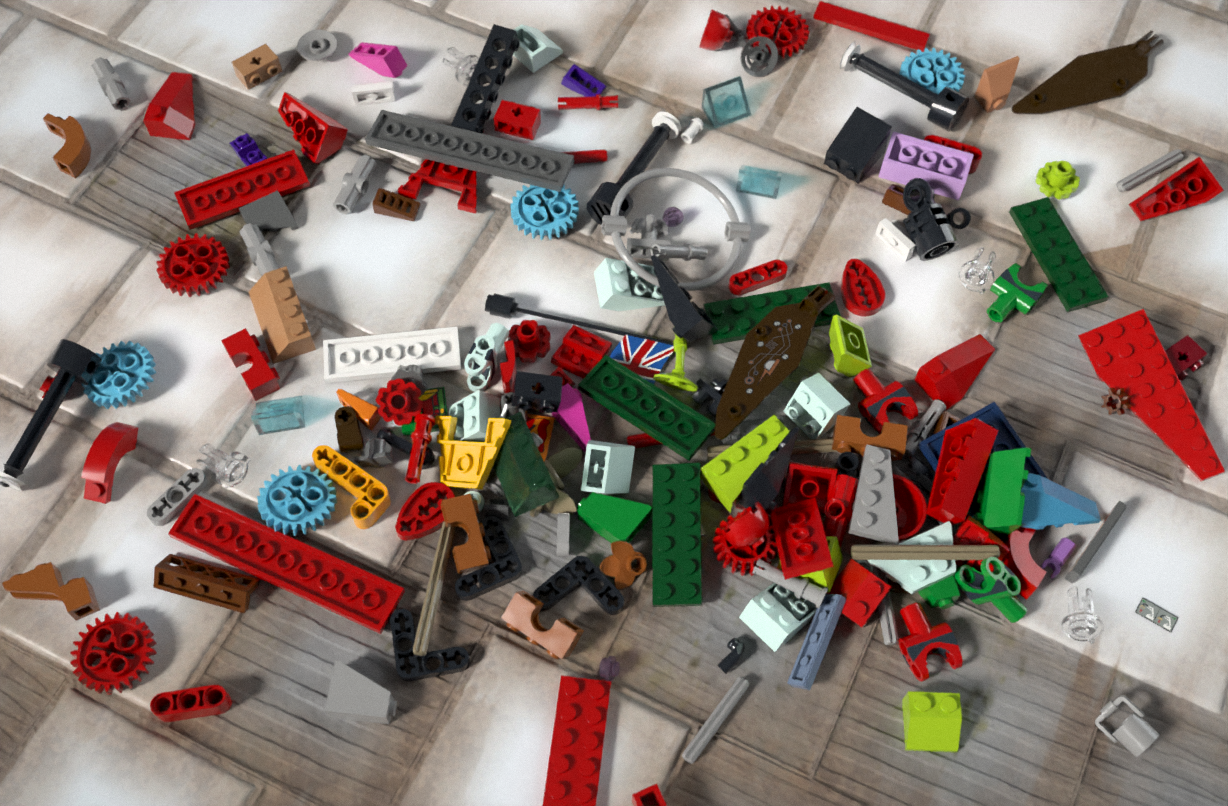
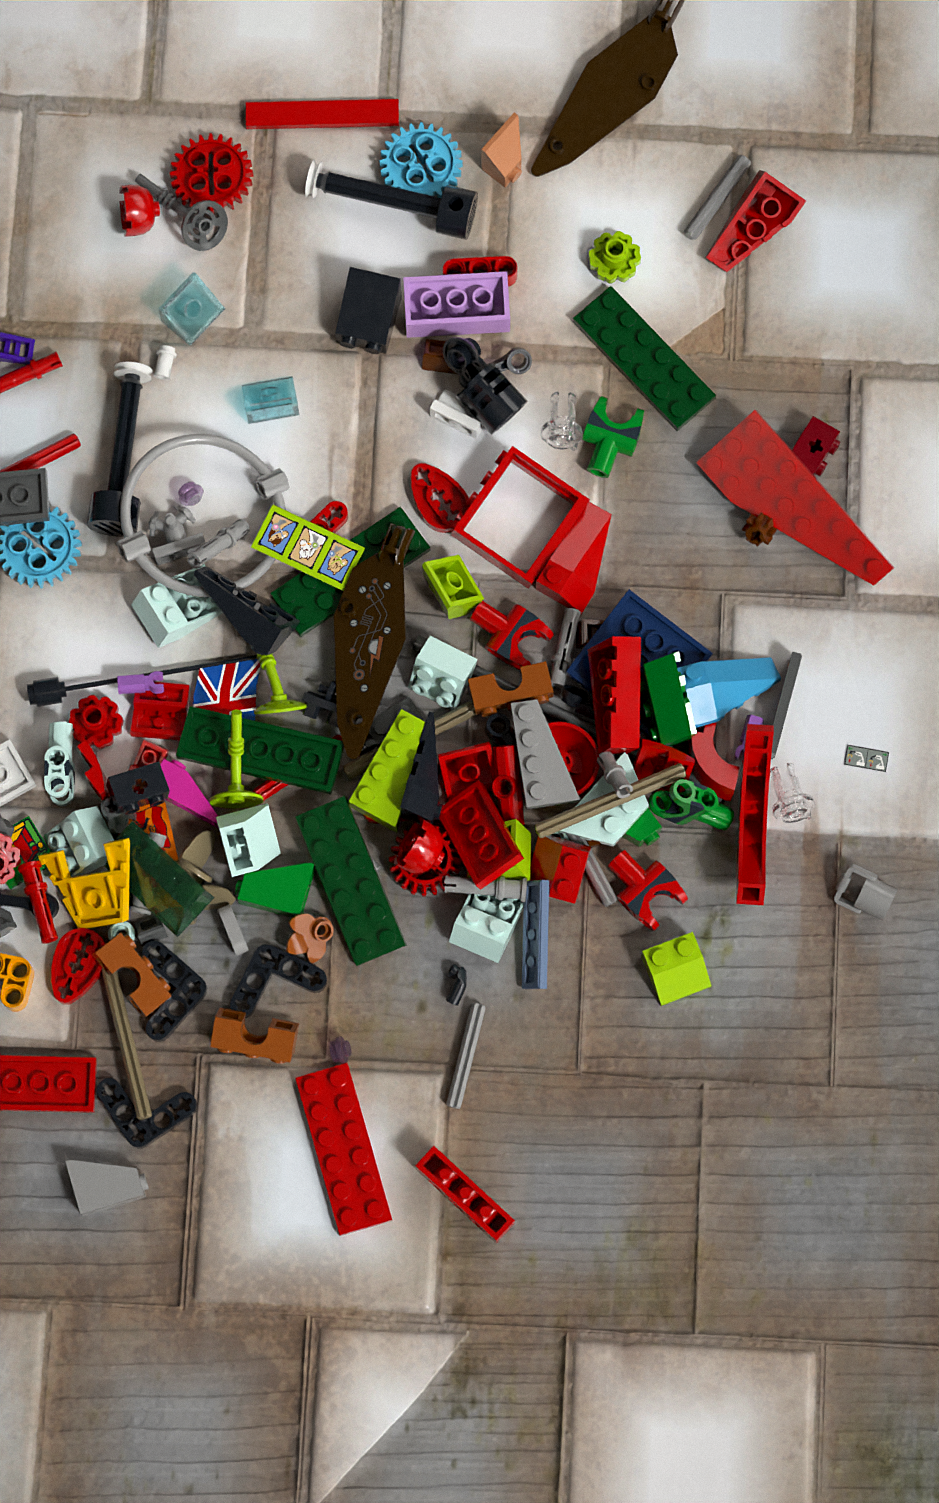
camera: 20 degrees left, 15 degrees up
(575, 325) = (139, 683): none -> medium lavender bar
(614, 428) = (236, 795): none -> lime dish
(746, 281) = (307, 547): none -> sticker
(936, 532) = (614, 774): none -> light grey pin
(950, 299) = (545, 477): none -> red window
(1032, 652) = (753, 815): none -> red arch

